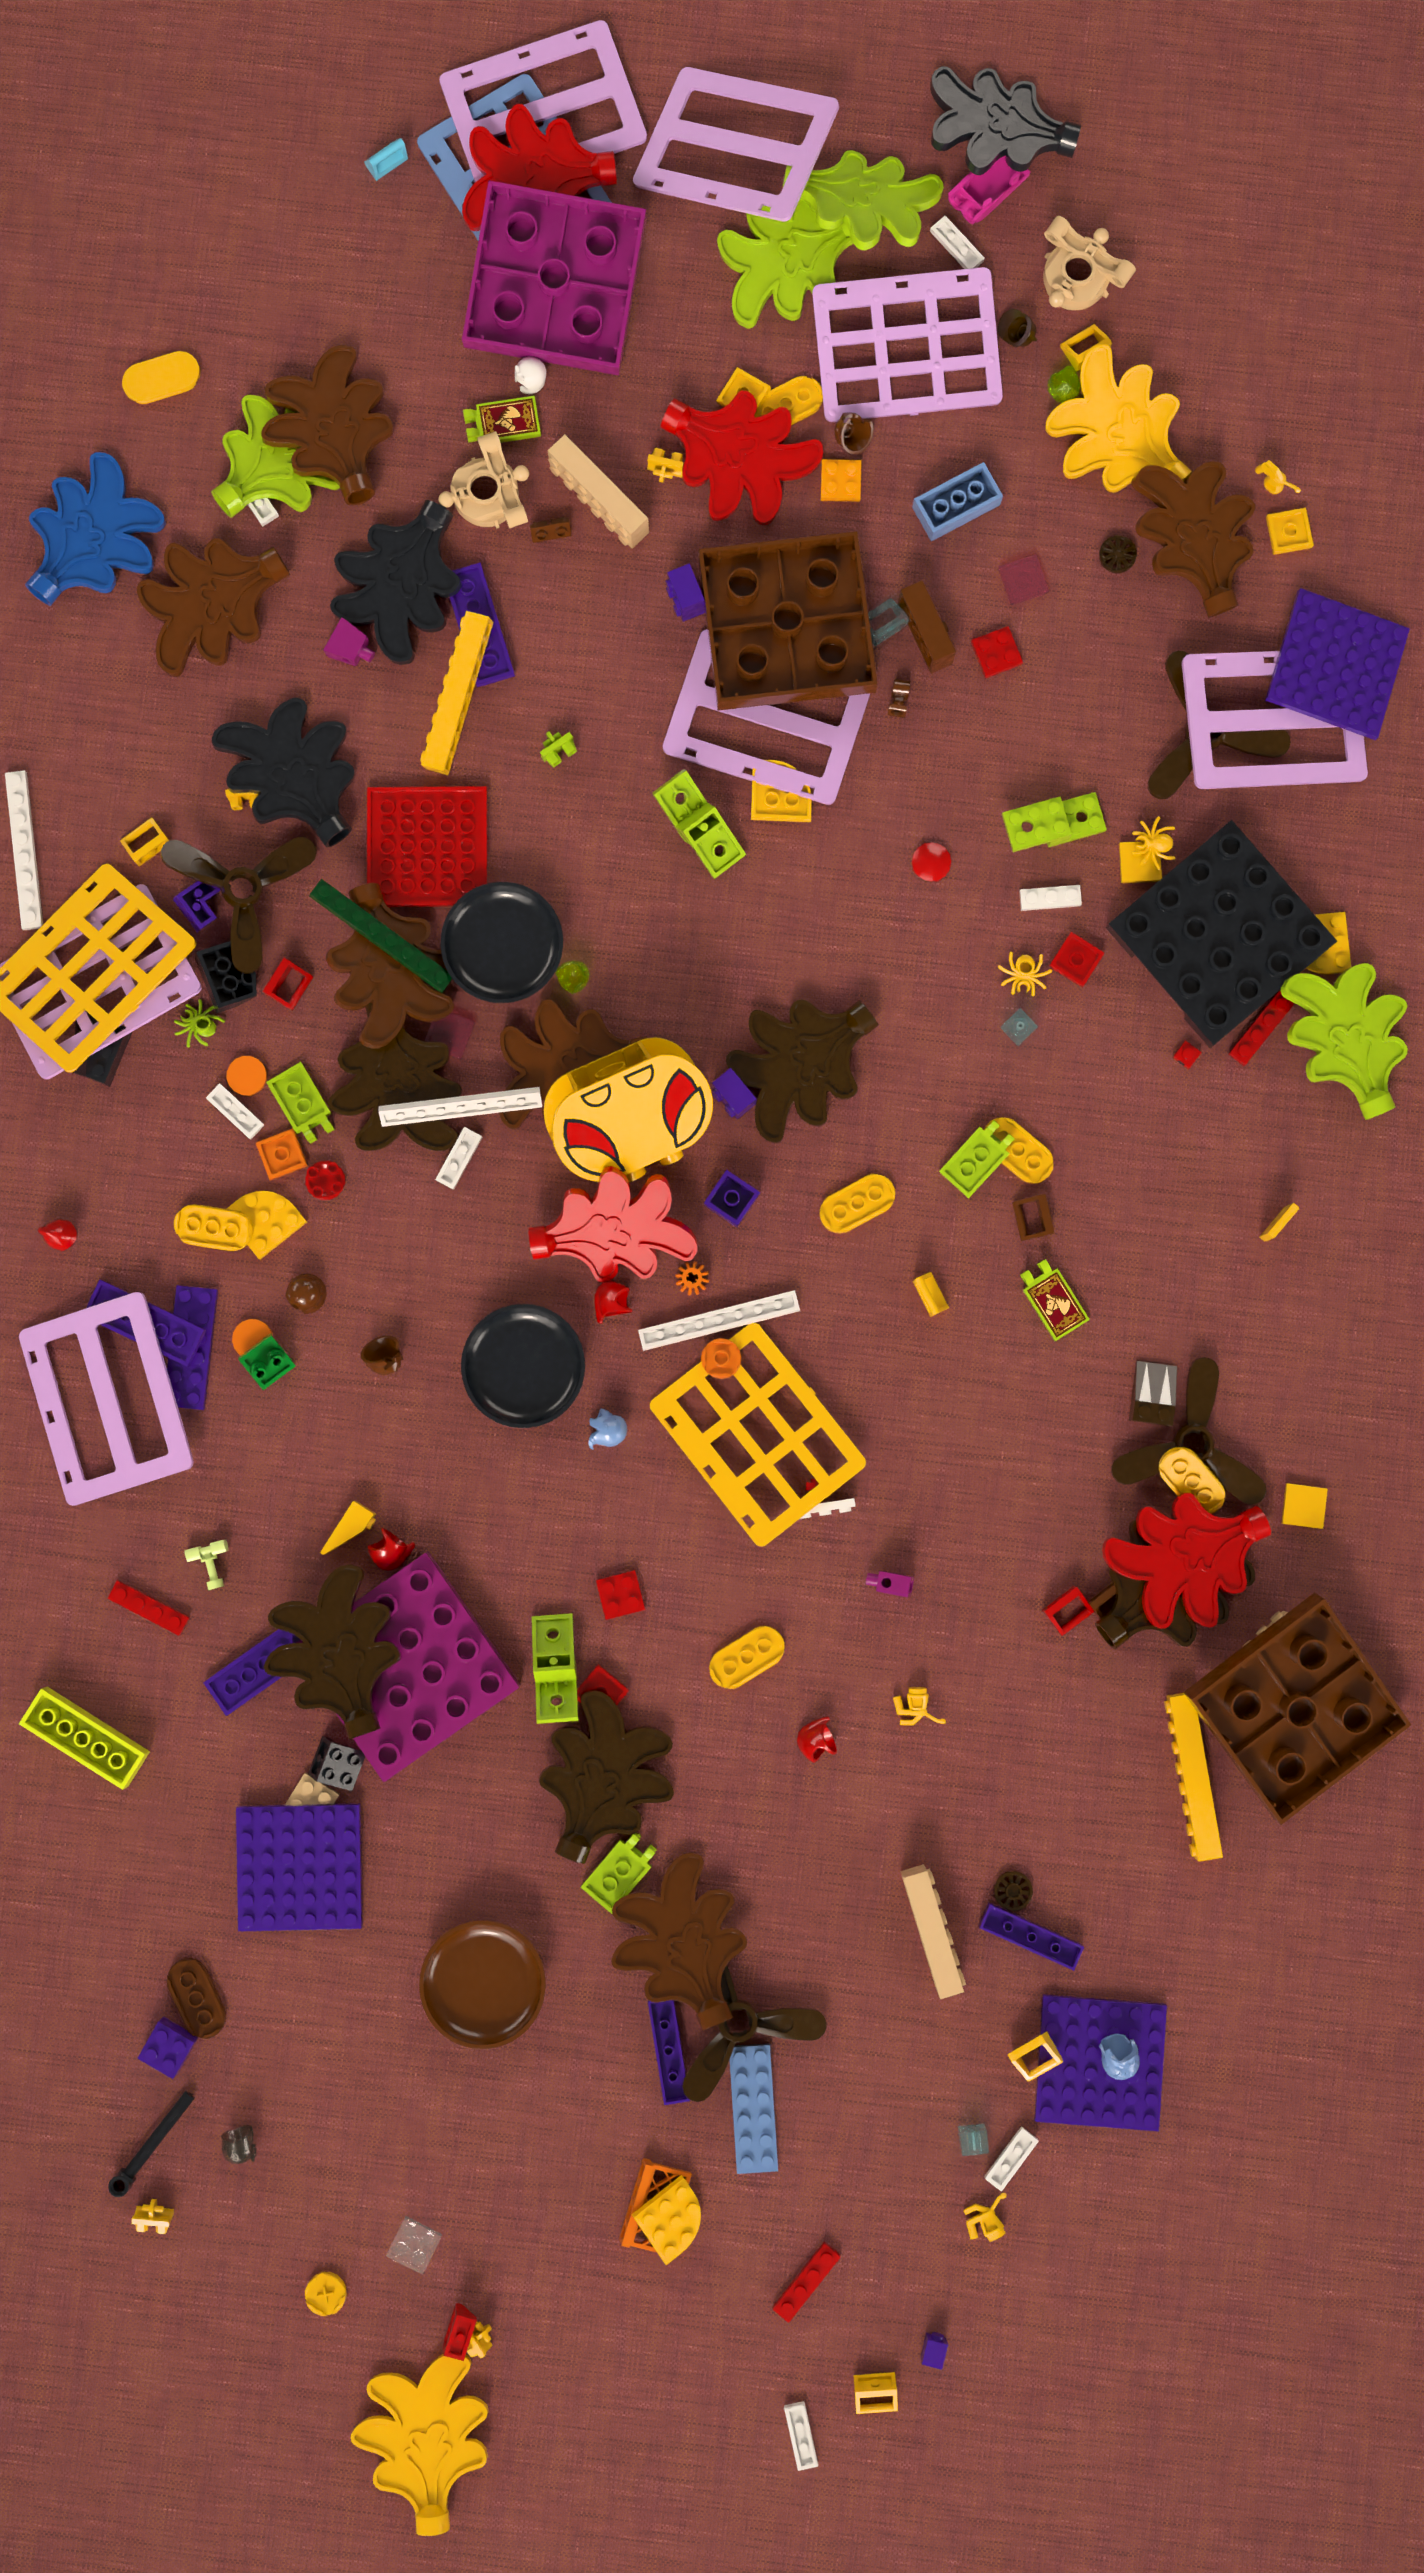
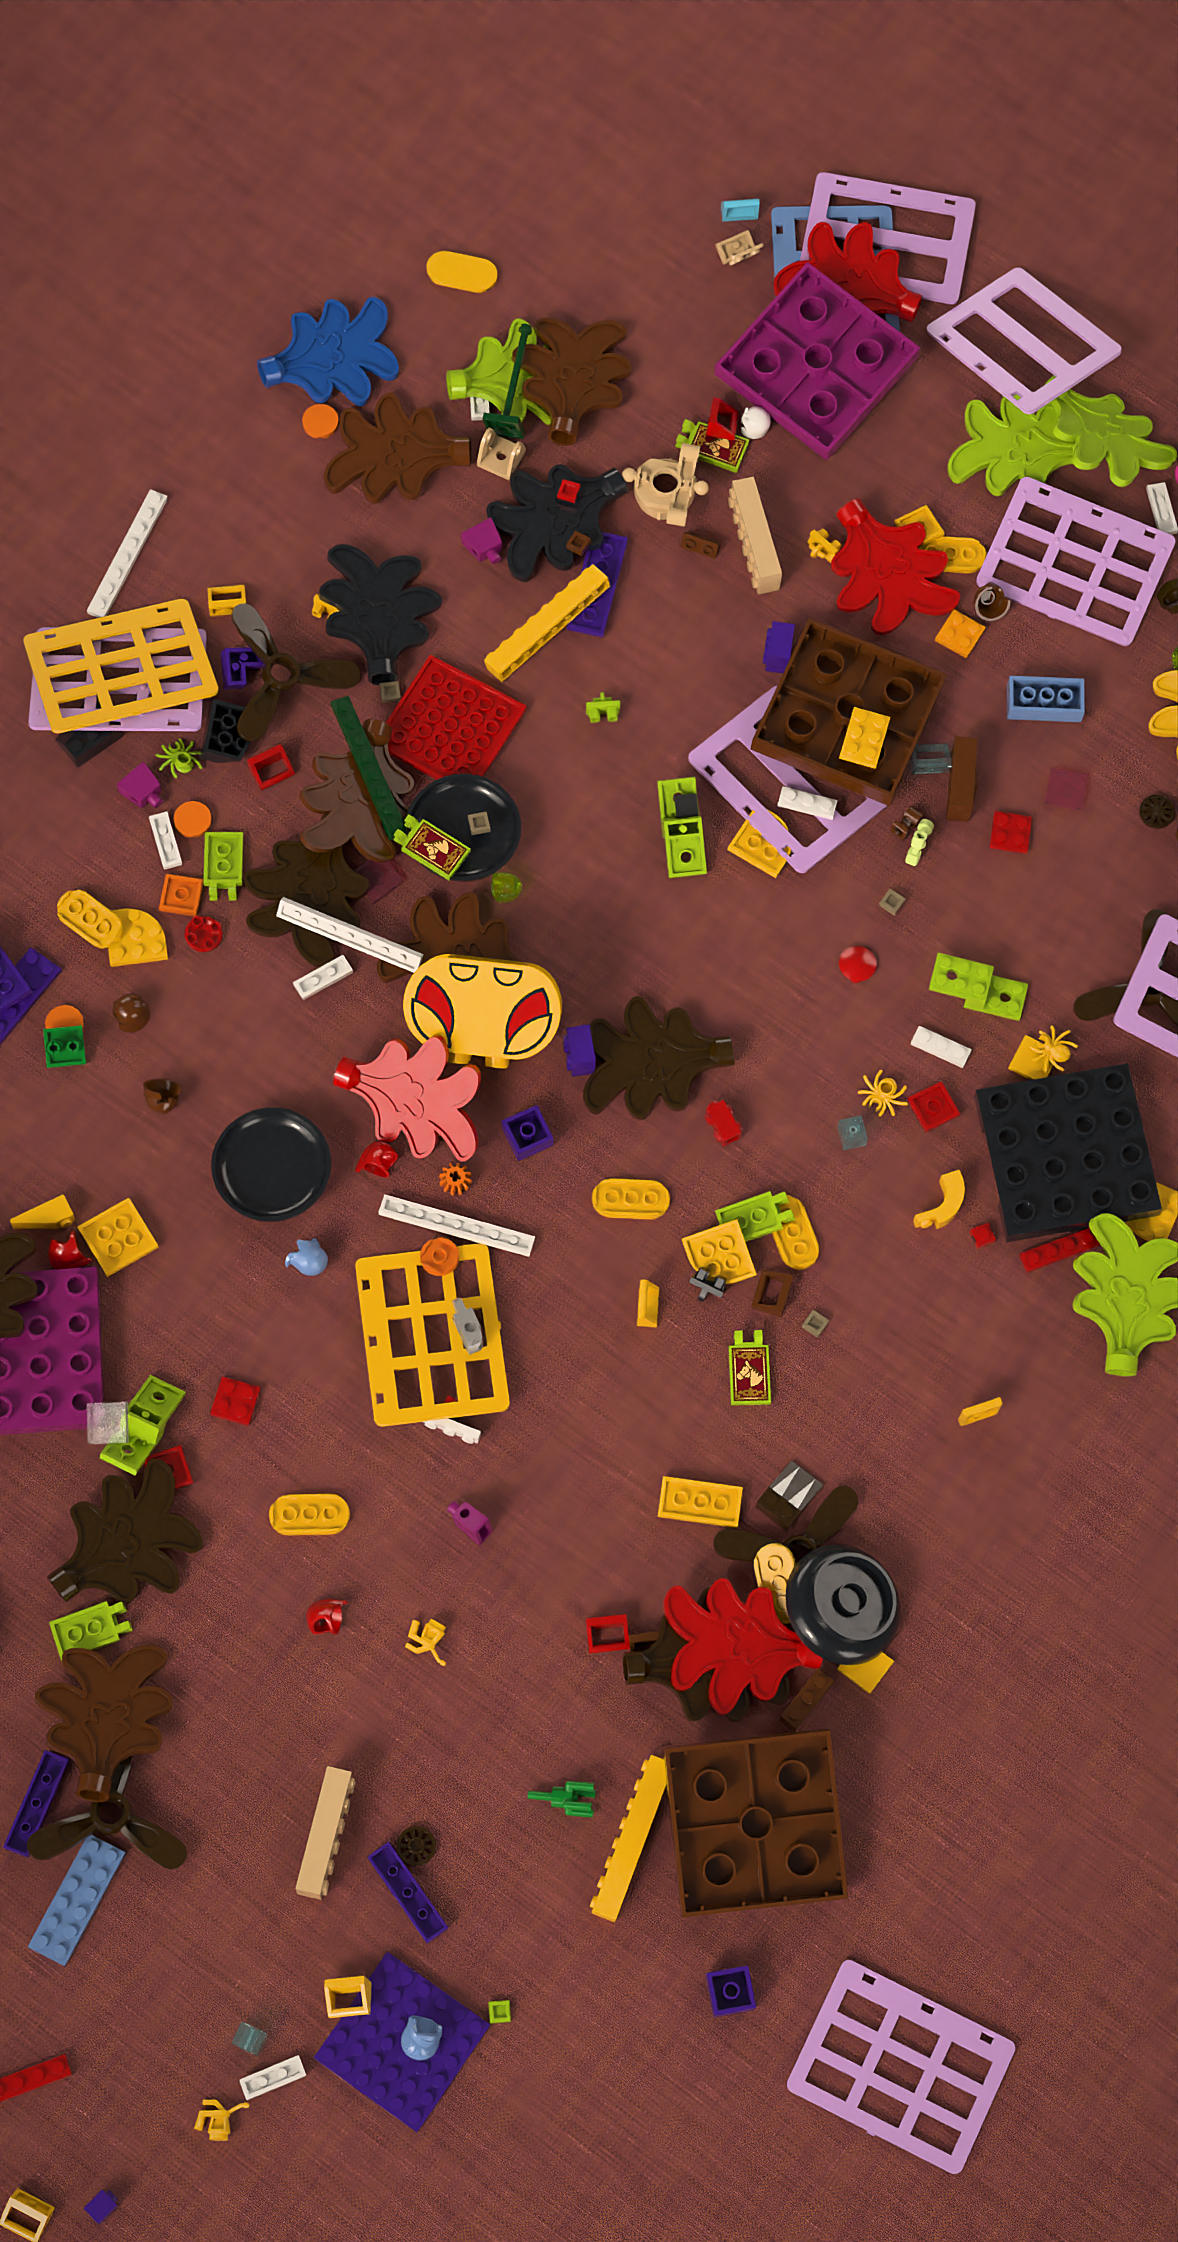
camera: 25 degrees right, 15 degrees down
(121, 610) = (320, 421): none -> orange tile
(181, 1073) = (141, 787): none -> magenta torso
(298, 514) = (505, 424): none -> dark green tile
(298, 544) = (493, 445): none -> tan hose
(351, 845) = (390, 692): none -> dark tan tile
(399, 548) = (568, 491): none -> red plate
(408, 201) = (736, 247): none -> tan bracket
(425, 1508) = (118, 1237): none -> yellow plate
(439, 596) = (578, 543): none -> reddish brown tile
(486, 979) = (432, 847): none -> tile
(497, 403) = (716, 429): none -> red tile
(515, 931) = (479, 823): none -> dark tan plate
(526, 1690) = (107, 1422): none -> clear plate
(692, 801) = (686, 805): none -> black piece
(787, 1411) = (467, 1327): none -> light grey piece
(798, 732) = (807, 802): none -> white plate
(819, 640) = (864, 737): none -> yellow plate
(896, 1083) = (724, 1125): none -> red brick
(923, 710) = (919, 841): none -> yellowish green bar
(929, 784) = (892, 902): none -> dark tan plate
(968, 1210) = (721, 1252): none -> yellow plate
(973, 1246) = (716, 1287): none -> hips
(1080, 1446) = (700, 1502): none -> yellow plate
(1086, 1223) = (815, 1323): none -> dark tan tile
(1117, 1775) = (567, 1798): none -> green plant
(1144, 1039) = (953, 1190): none -> yellow arch
(1167, 1988) = (499, 2011): none -> lime tile
(1258, 1467) = (842, 1604): none -> black dish
(1273, 1569) = (806, 1700): none -> reddish brown brick
(1354, 1859) = (730, 1991): none -> dark purple brick

